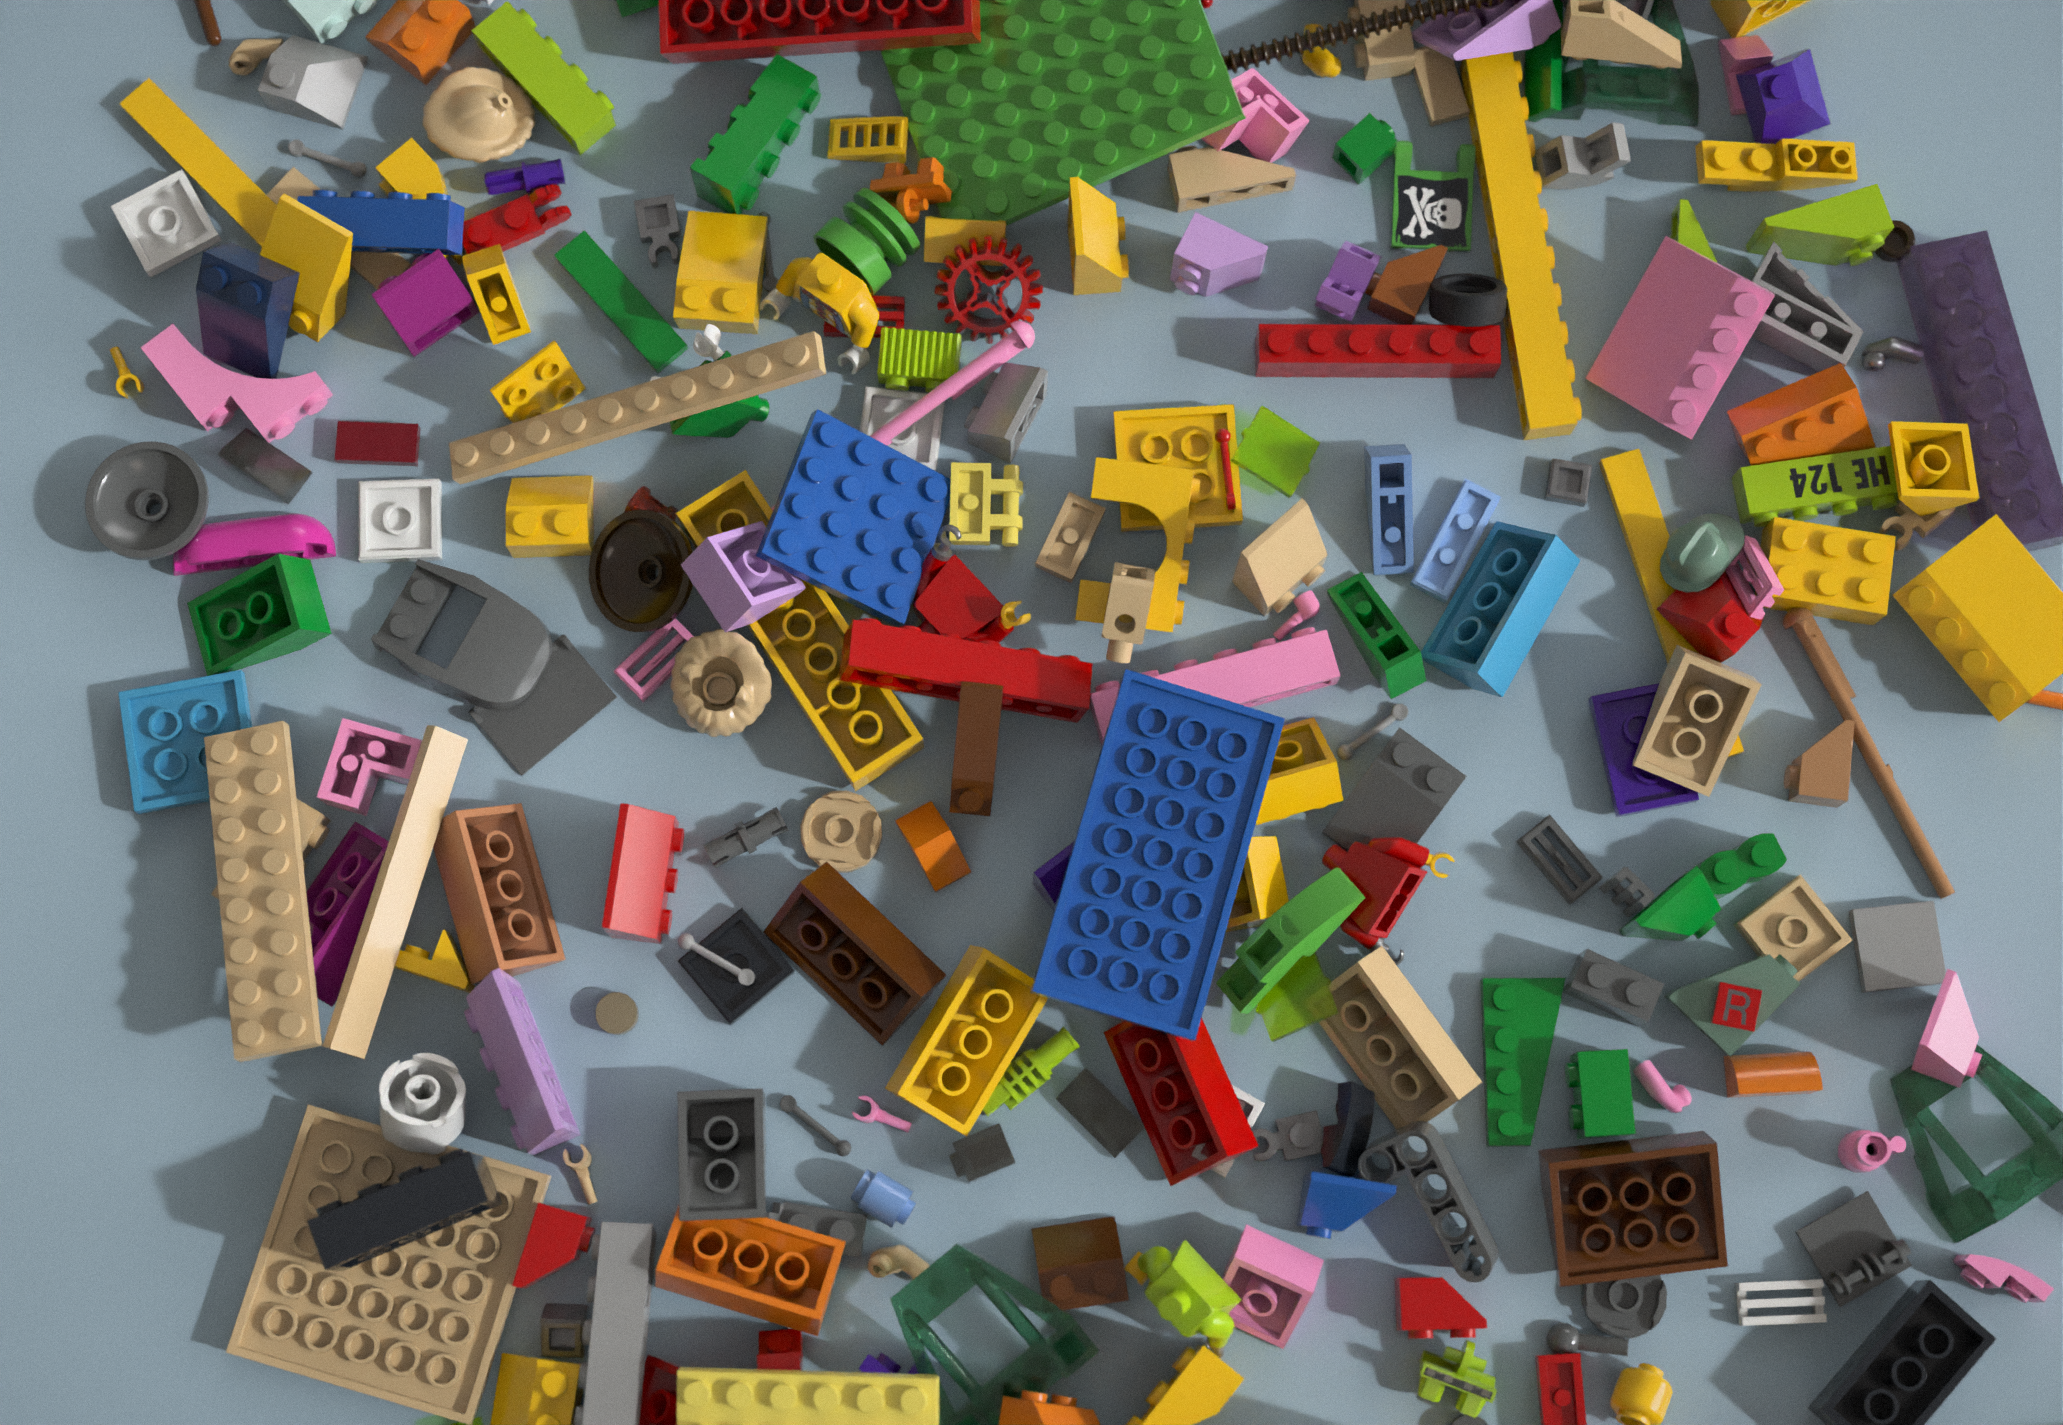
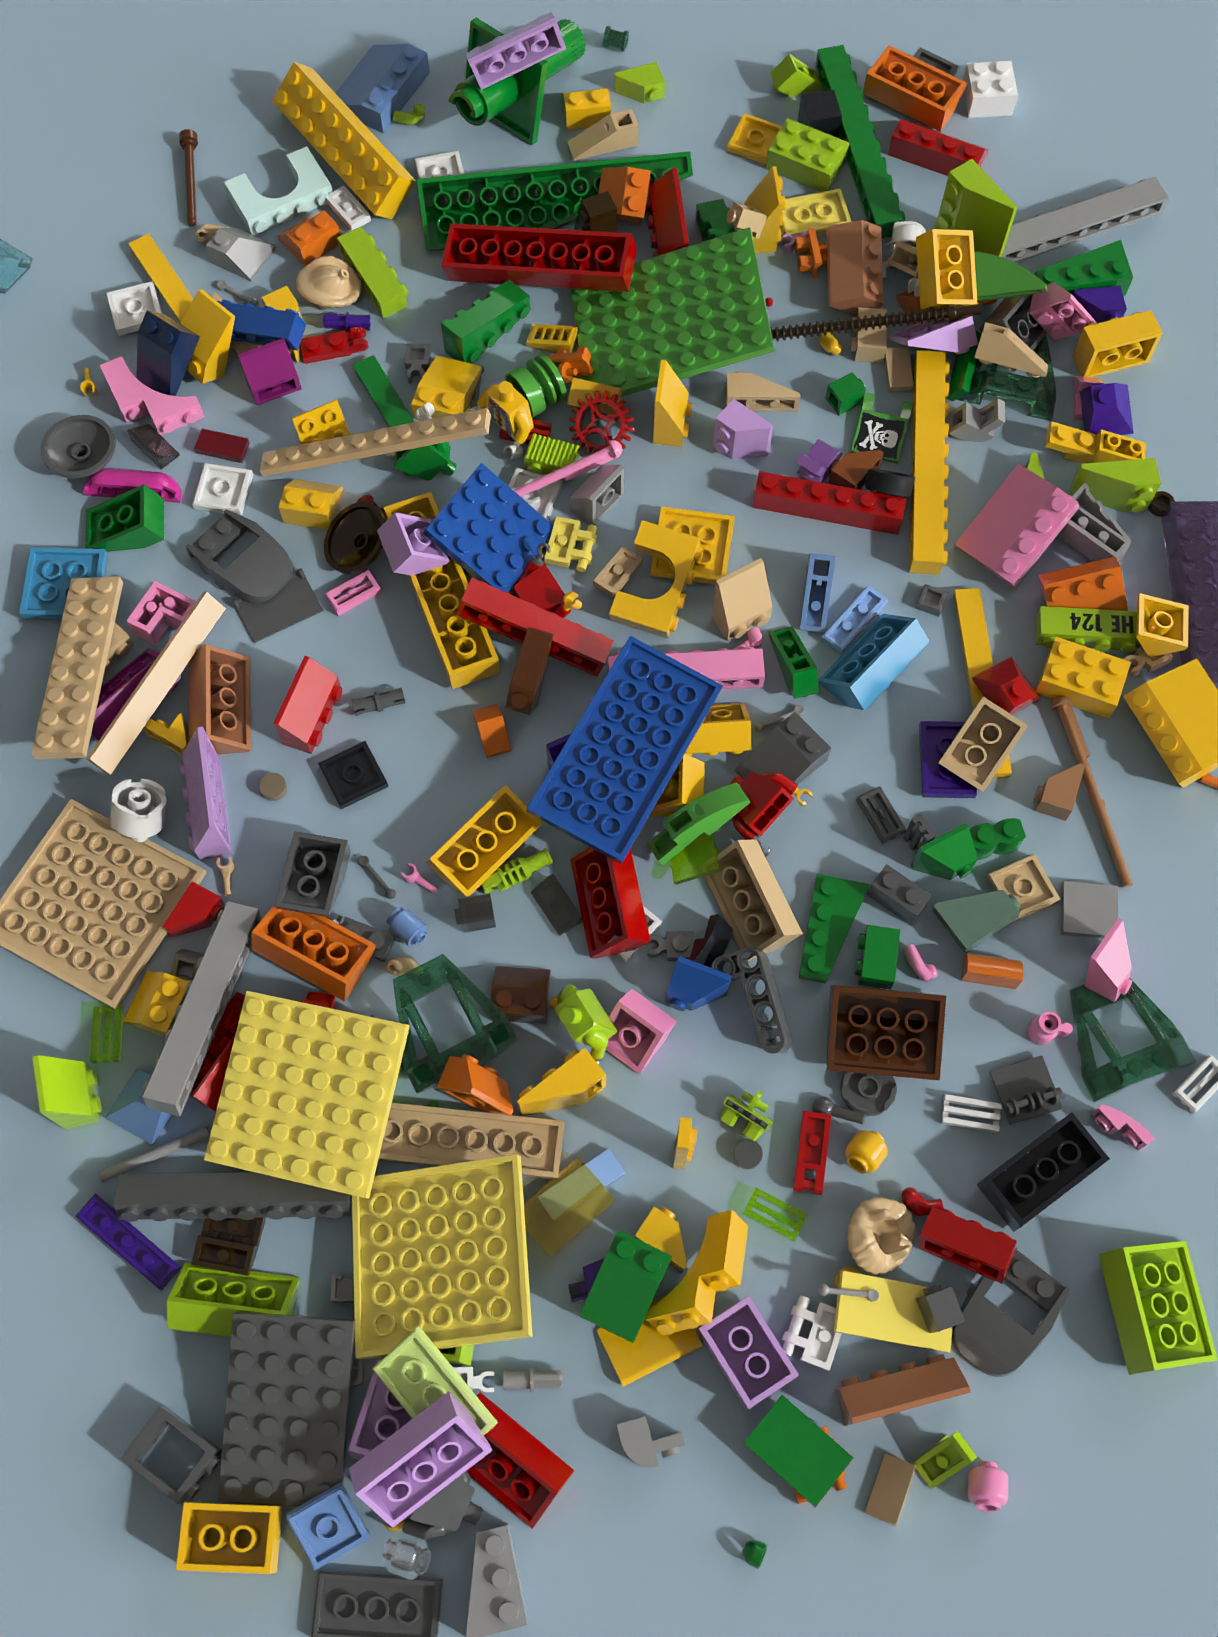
camera: 15 degrees right, 10 degrees down
(403, 1212) = (107, 865): black brick -> none
(495, 294) = (312, 378): yellow slope -> none
(720, 683) = (385, 607): tan piece -> none
(745, 976) = (356, 778): light grey hinge -> none
(841, 831) = (437, 711): tan tile -> none
(854, 952) = (426, 779): reddish brown slope -> none
(1129, 595) = (644, 597): tan torso -> none
(1223, 437) = (723, 531): red hinge -> none
(1270, 120) = (785, 365): bright pink brick -> none
(1275, 451) = (753, 544): clear neon green piece -> none
(1433, 1305) = (742, 1065): red slope -> none
(1701, 551) = (1005, 649): sand green piece -> none
(1736, 1006) = (975, 916): red tile -> none
(1759, 573) = (1040, 667): bright pink tile -> none
(1890, 347) = (1148, 560): flat silver arm -> none

